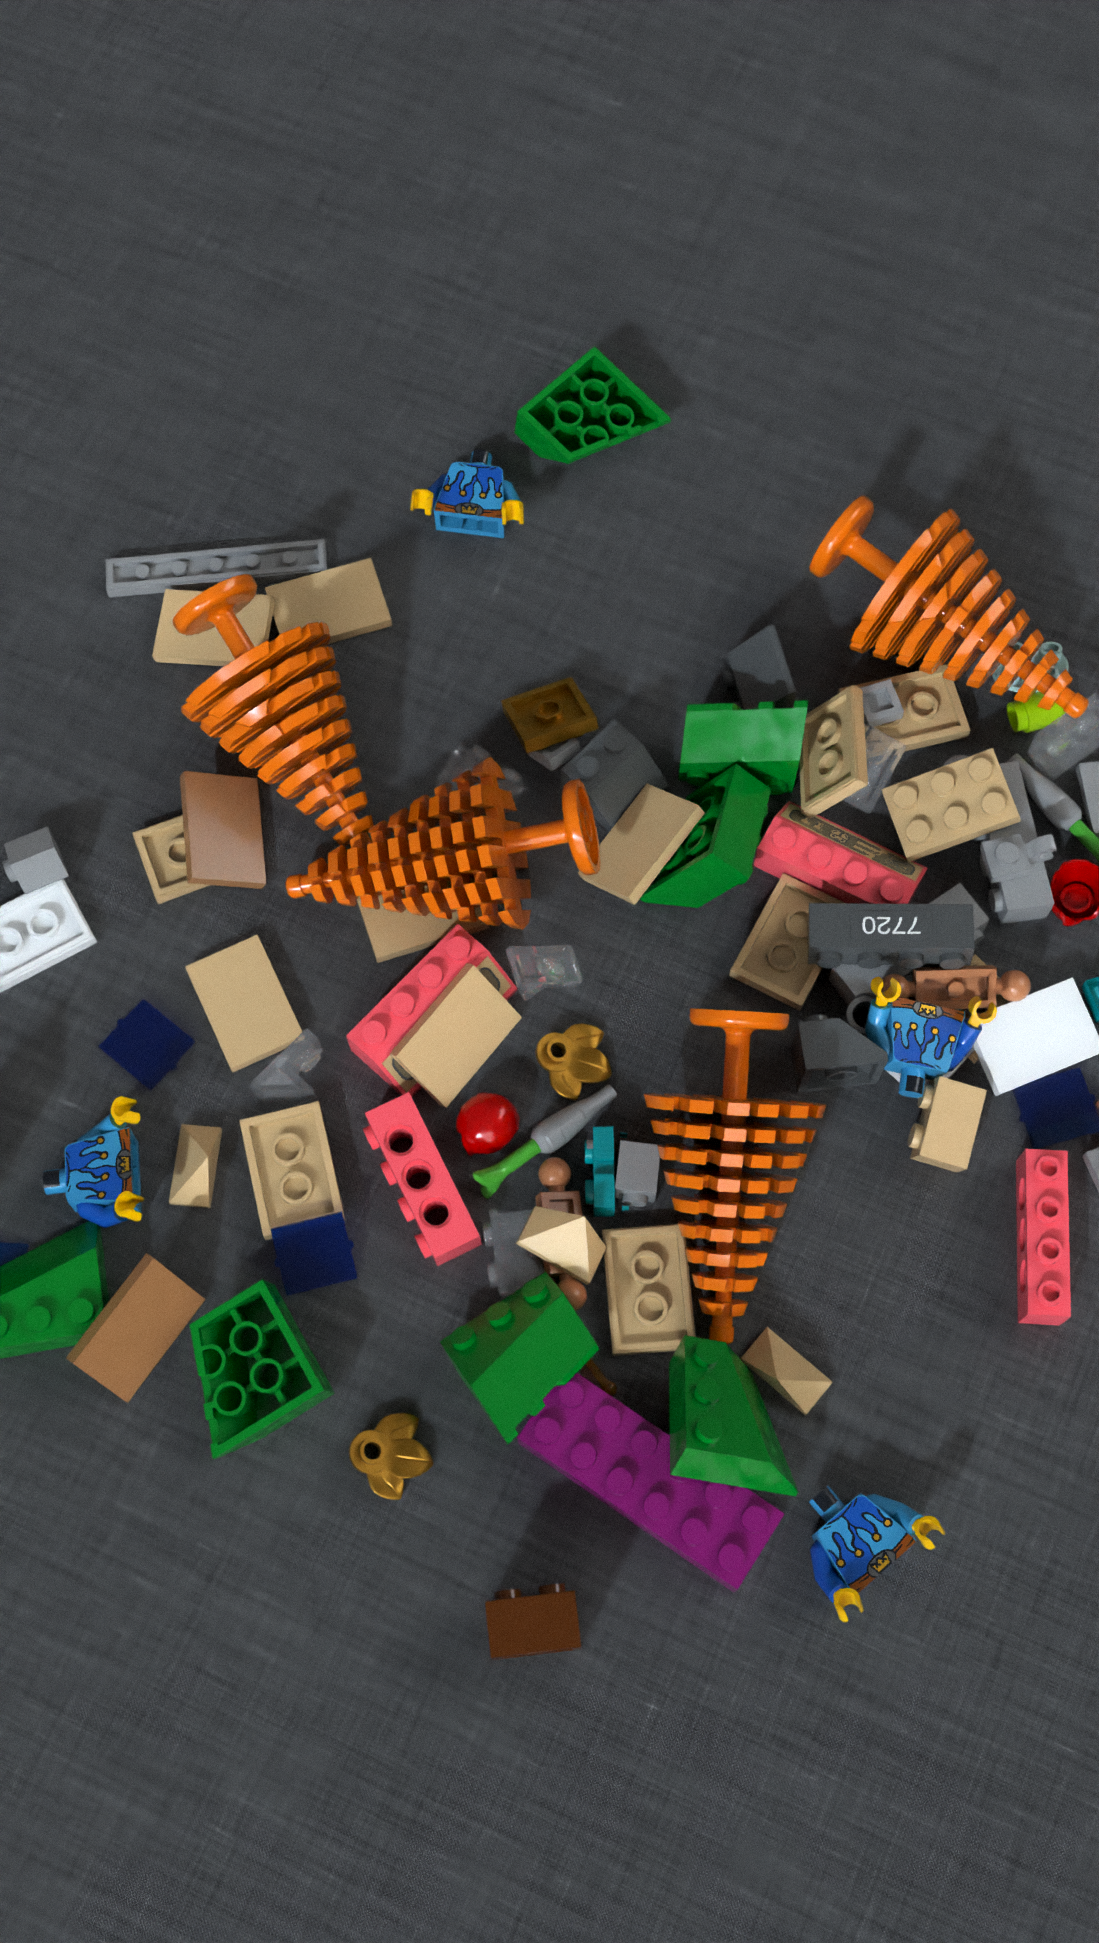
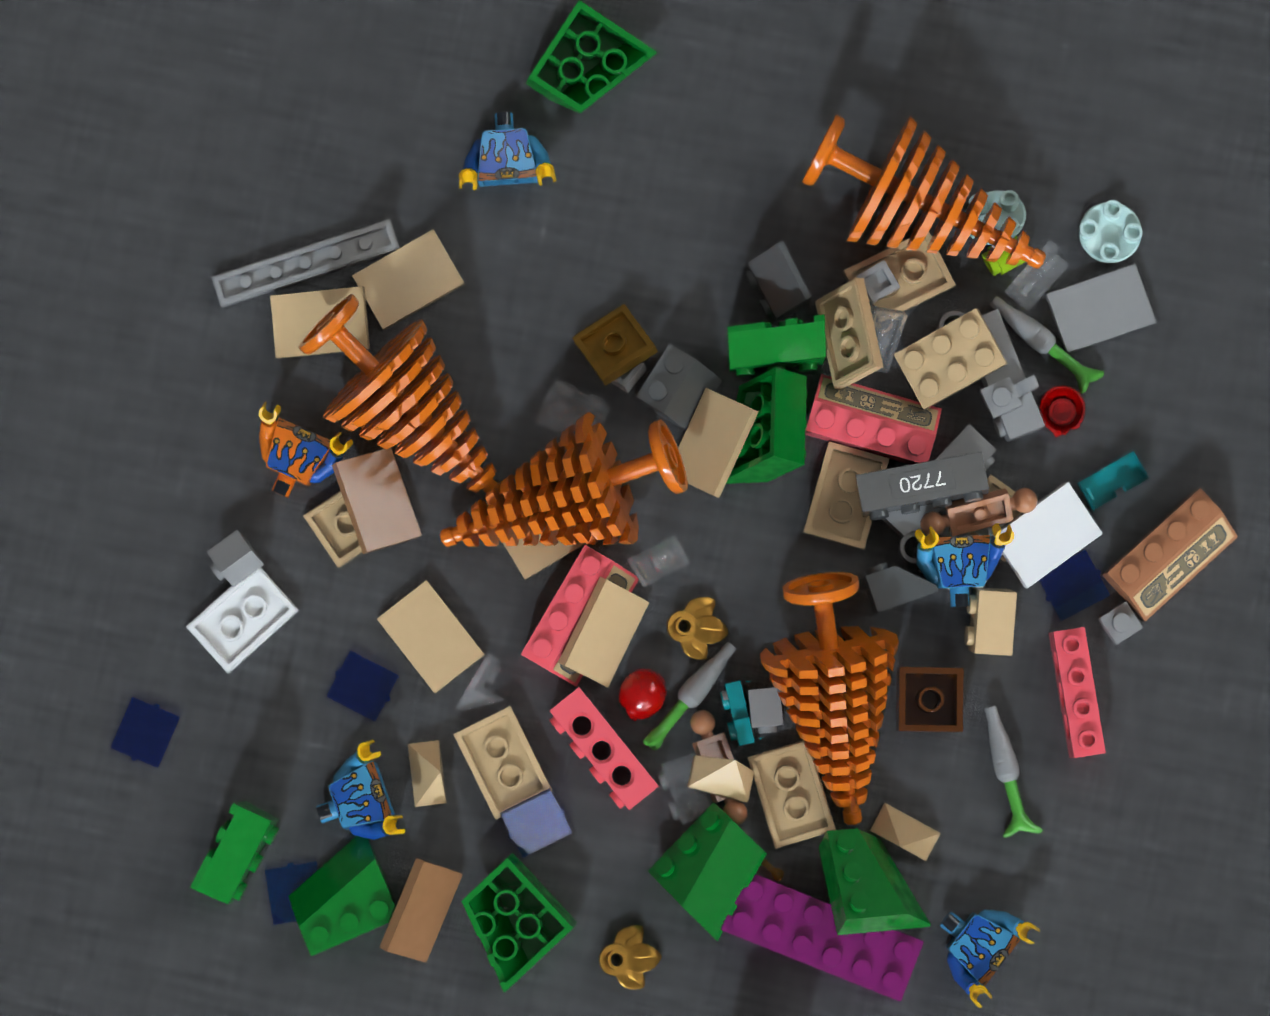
camera: 10 degrees left, 15 degrees up
(143, 757) = (296, 452): none -> torso
(850, 1203) = (929, 699): none -> reddish brown brick
(935, 1319) = (1007, 771): none -> light grey piece

